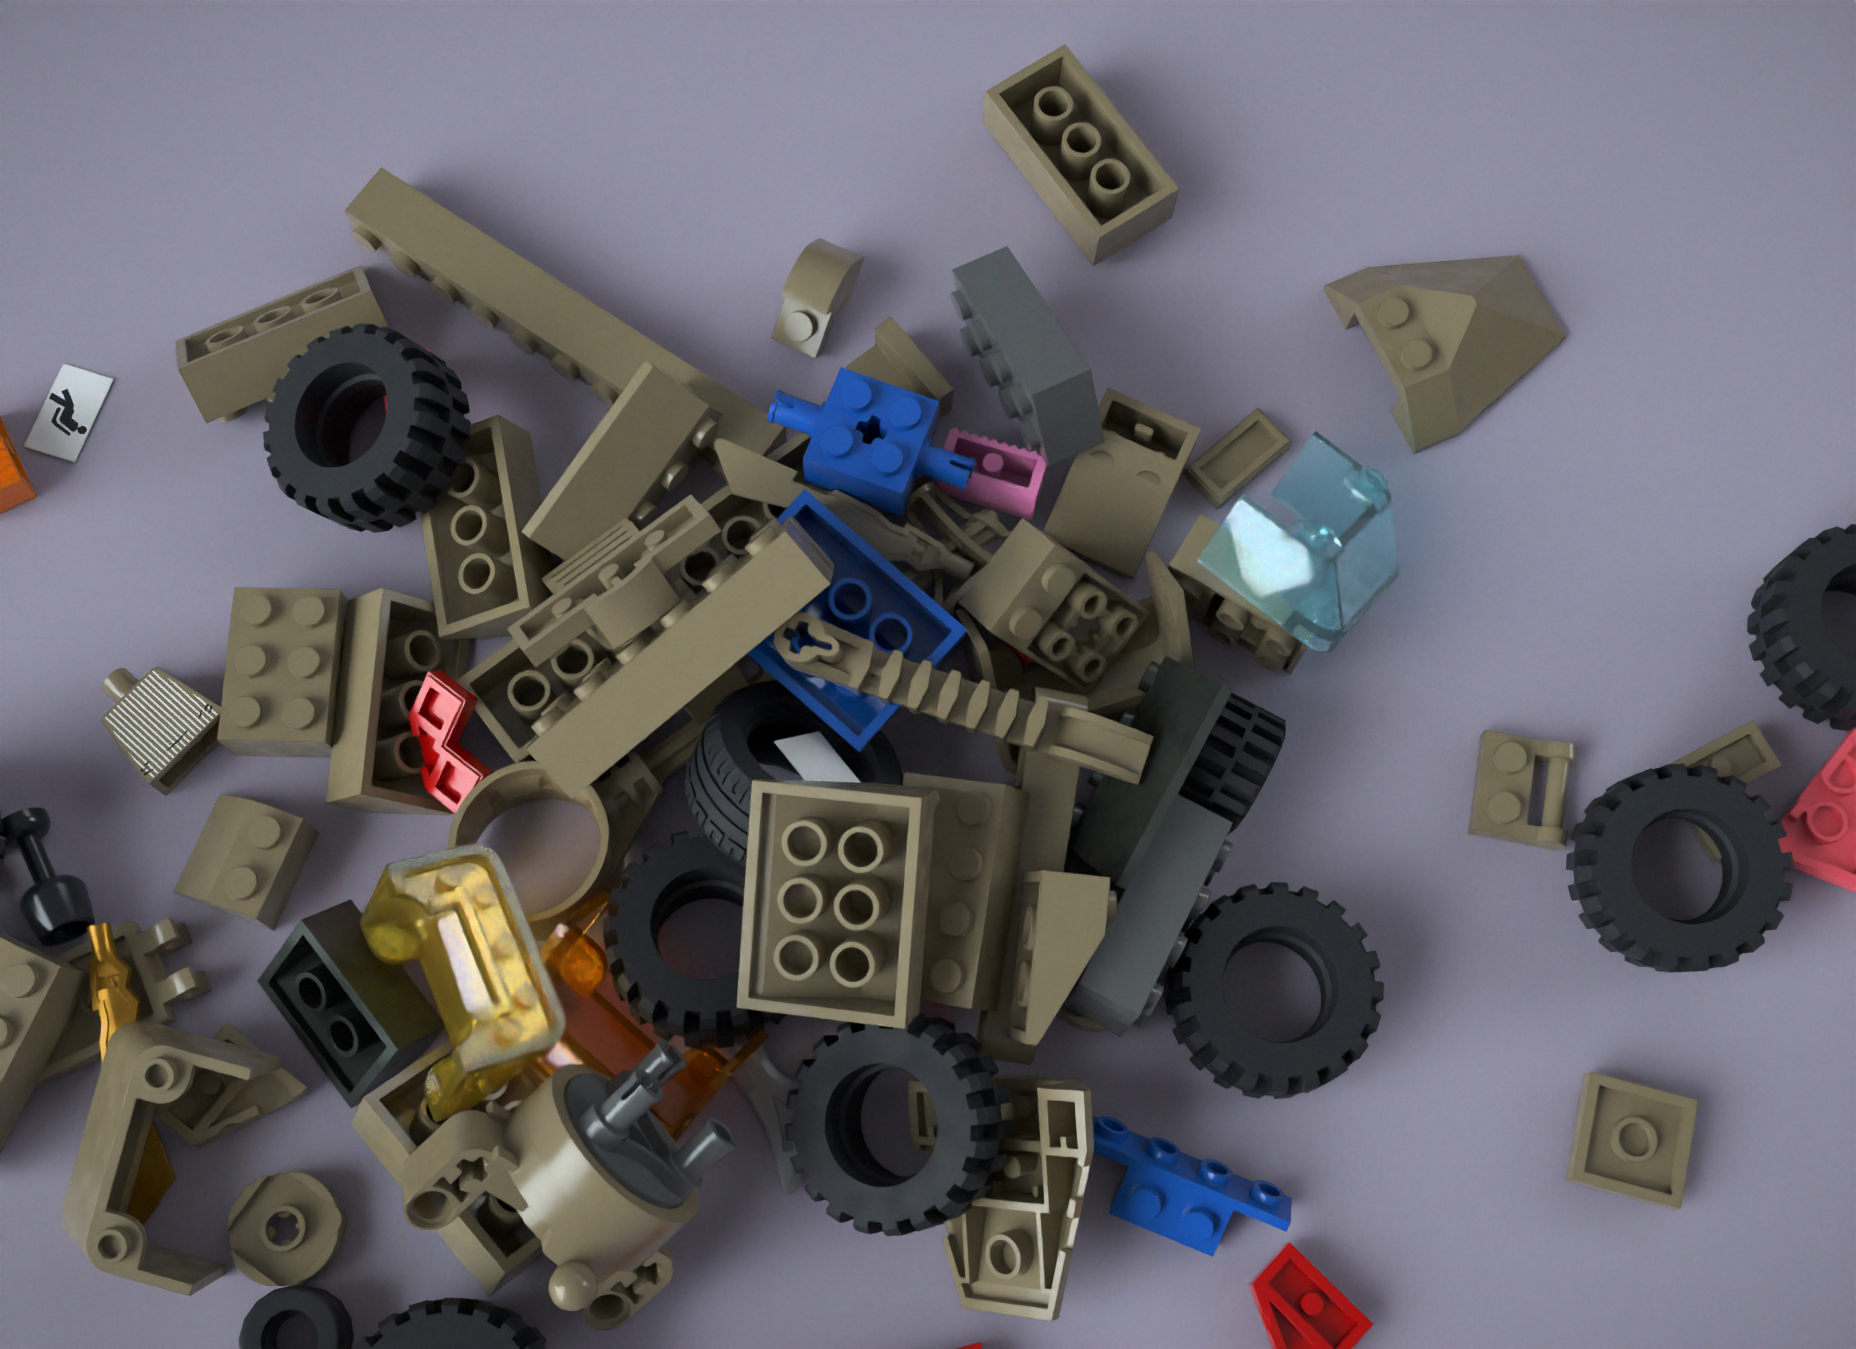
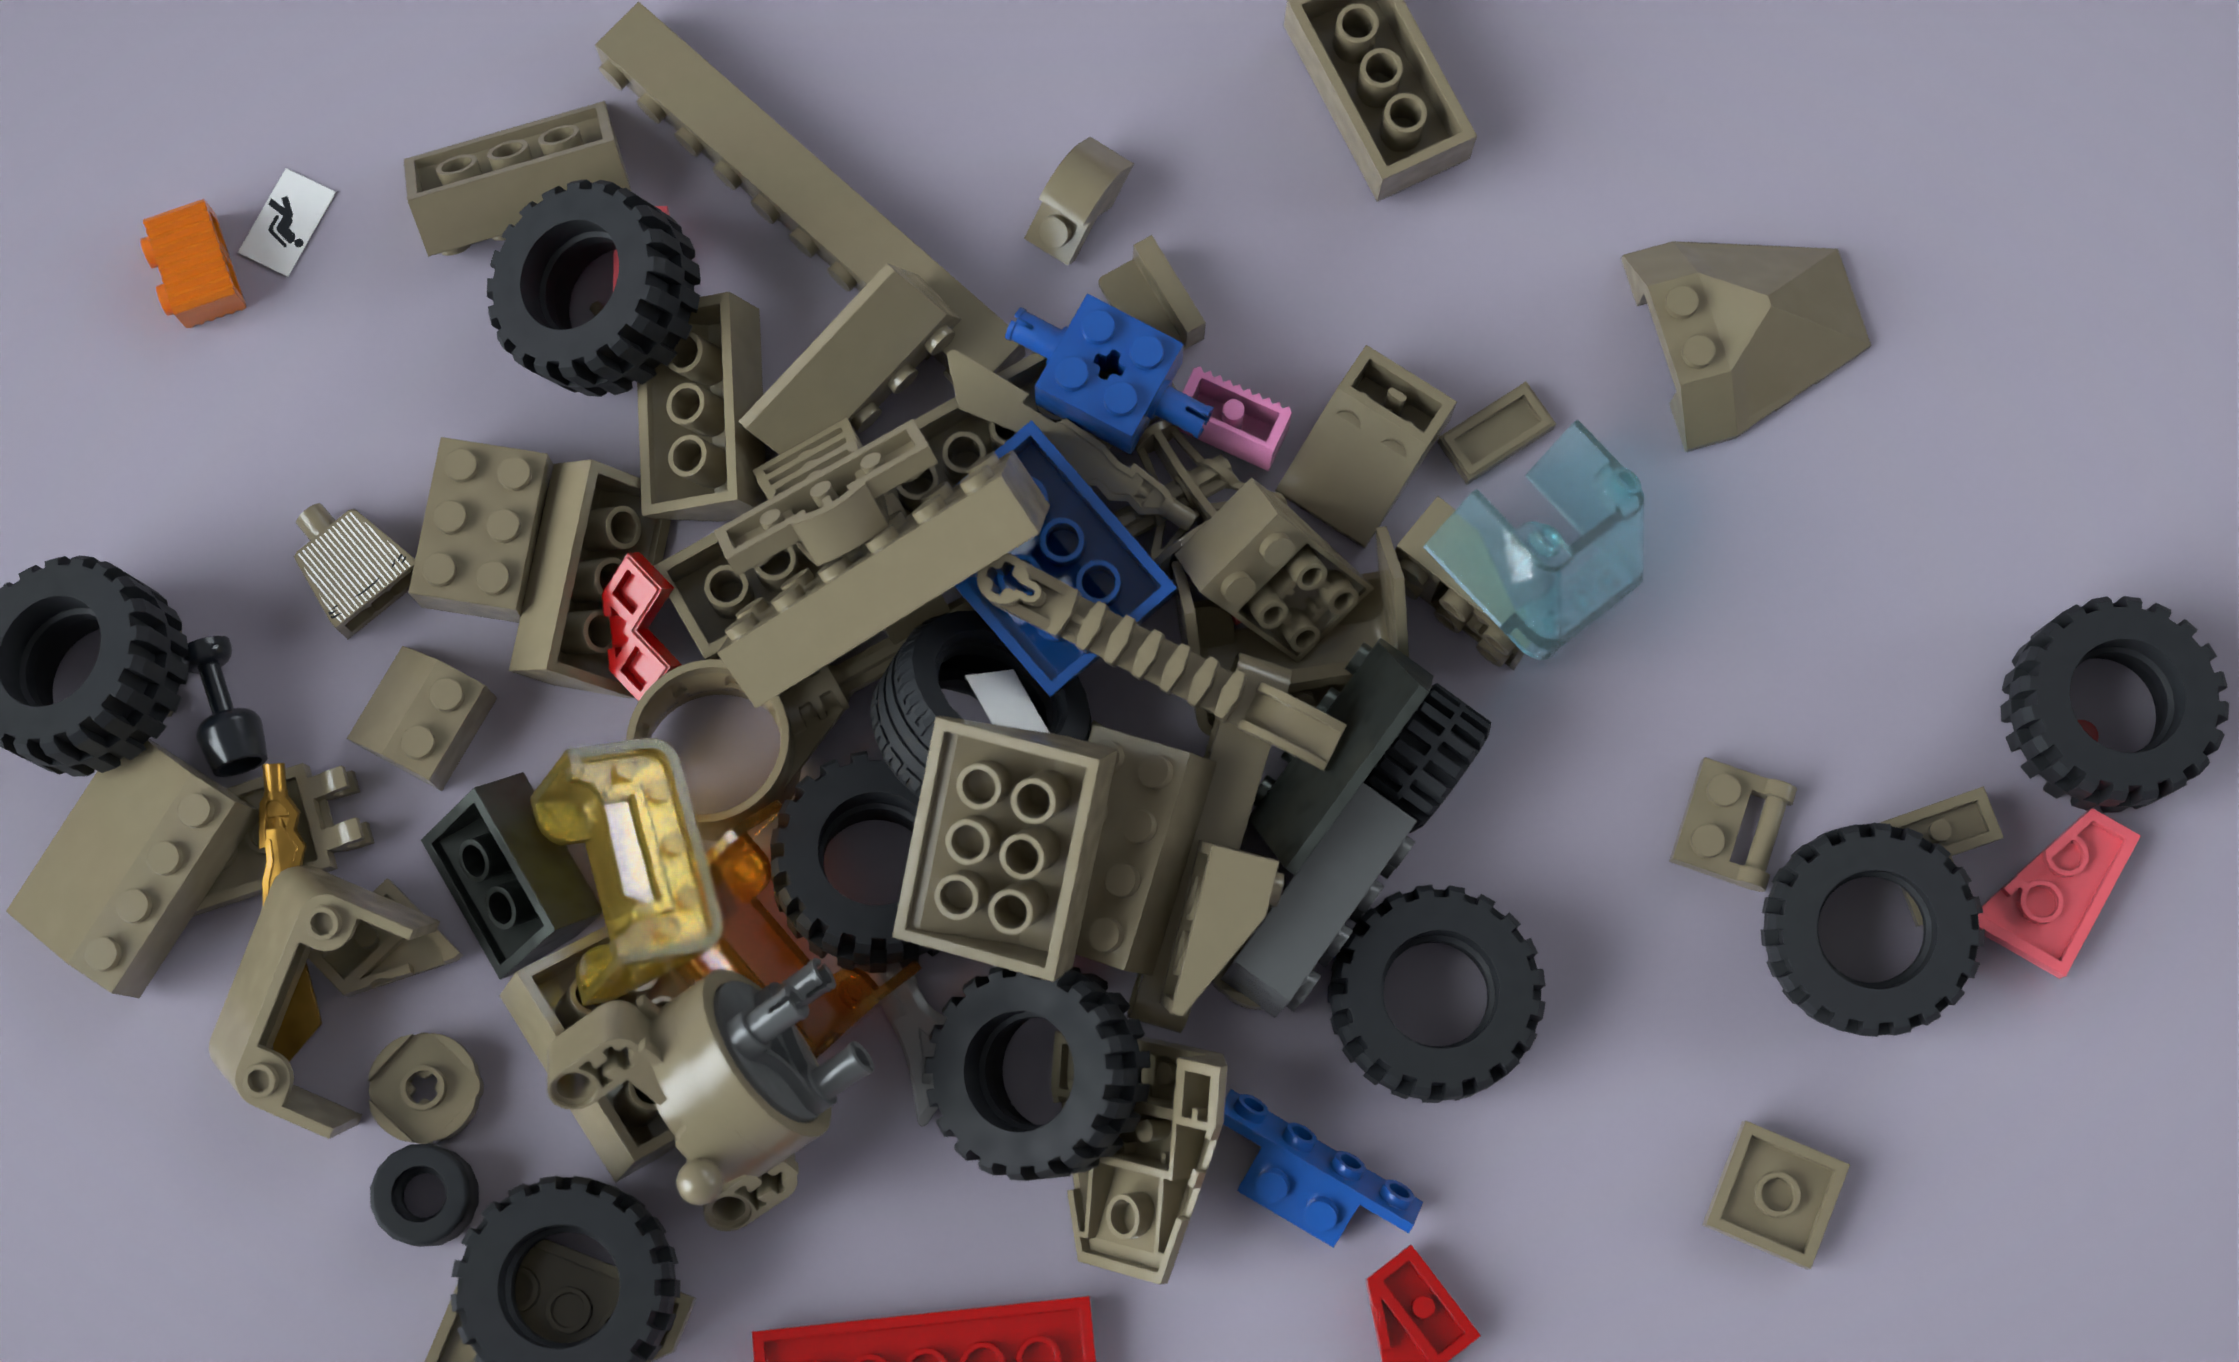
camera: 10 degrees right, 5 degrees up
(1027, 357) = (1283, 302): dark grey brick -> none

